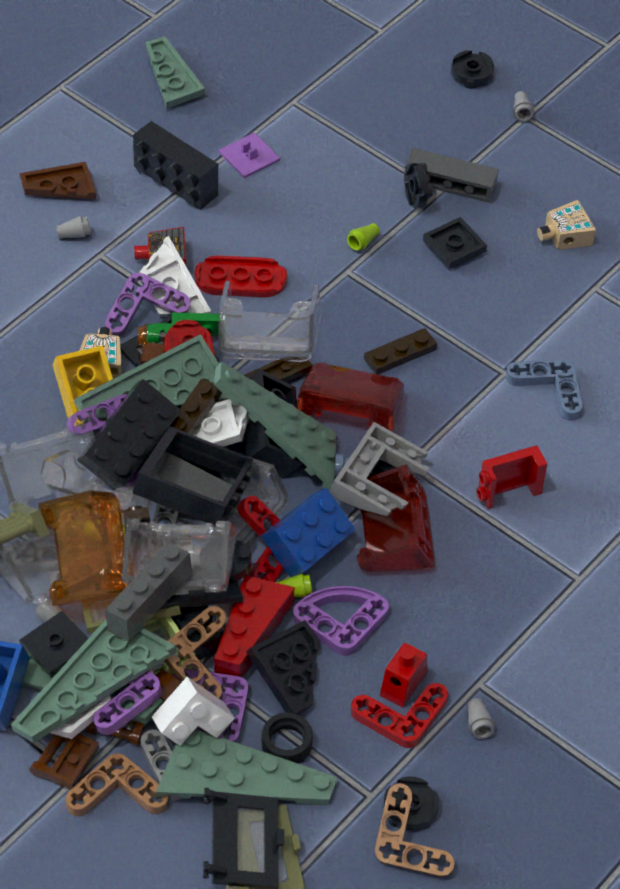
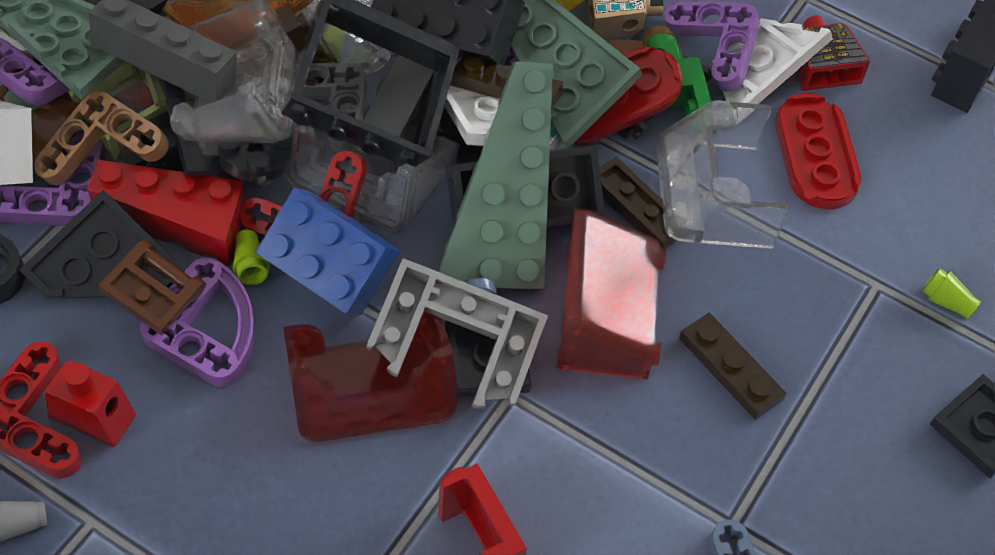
camera: 80 degrees right, 5 degrees up
(328, 637) = (146, 296): none -> reddish brown plate

